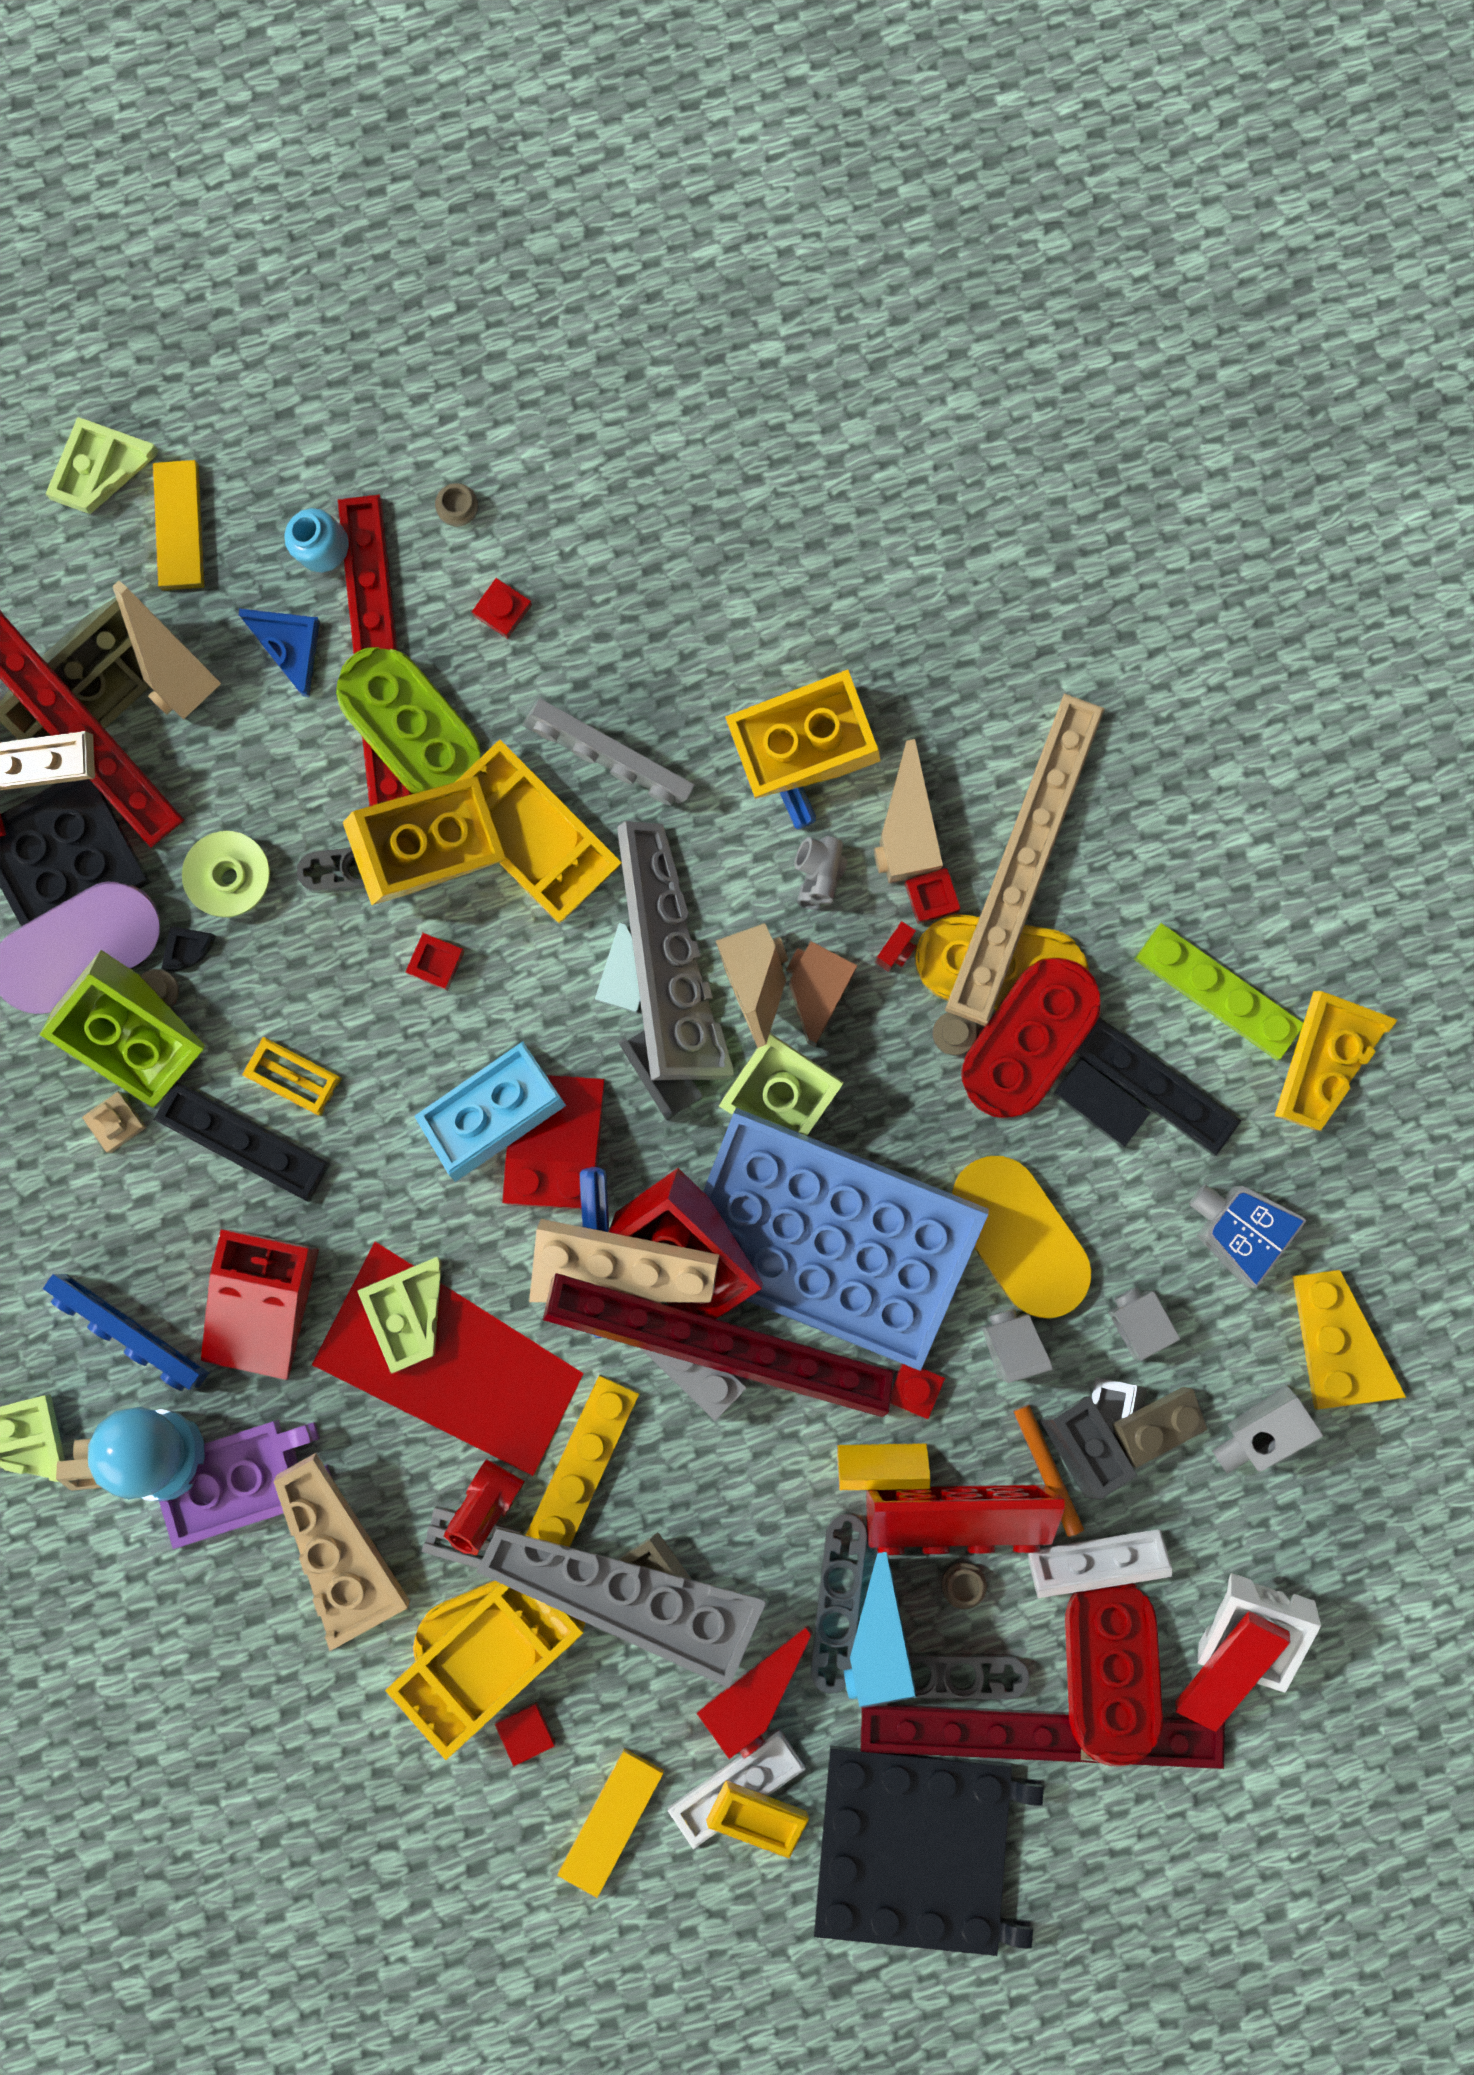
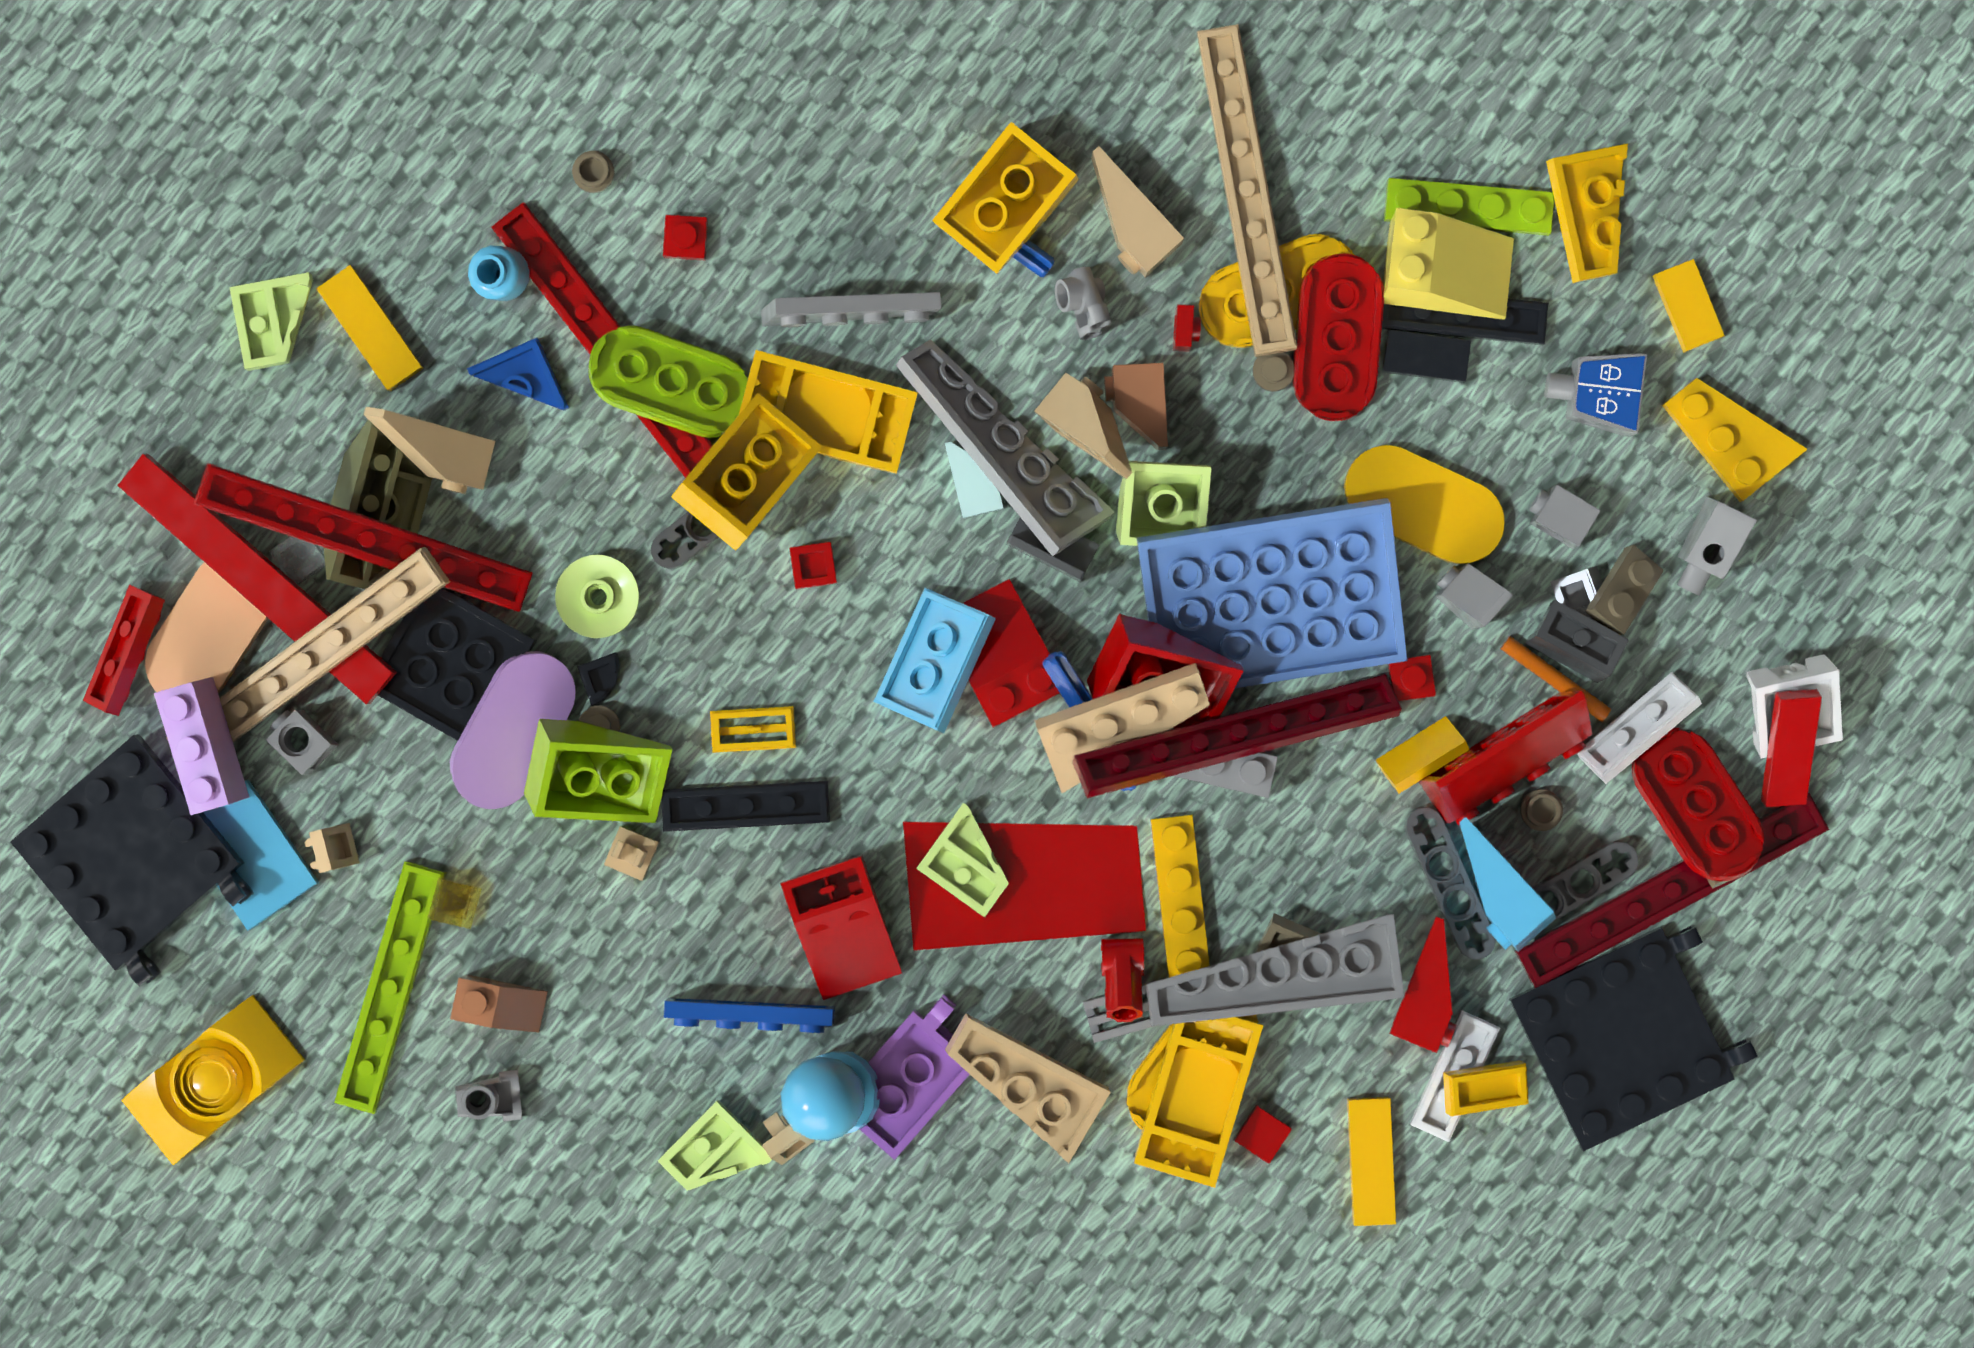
camera: 30 degrees left, 5 degrees up
(932, 896) = (1188, 267): red plate -> none
(1168, 1031) = (1446, 265): none -> light yellow slope
(1369, 1199) = (1688, 305): none -> yellow tile

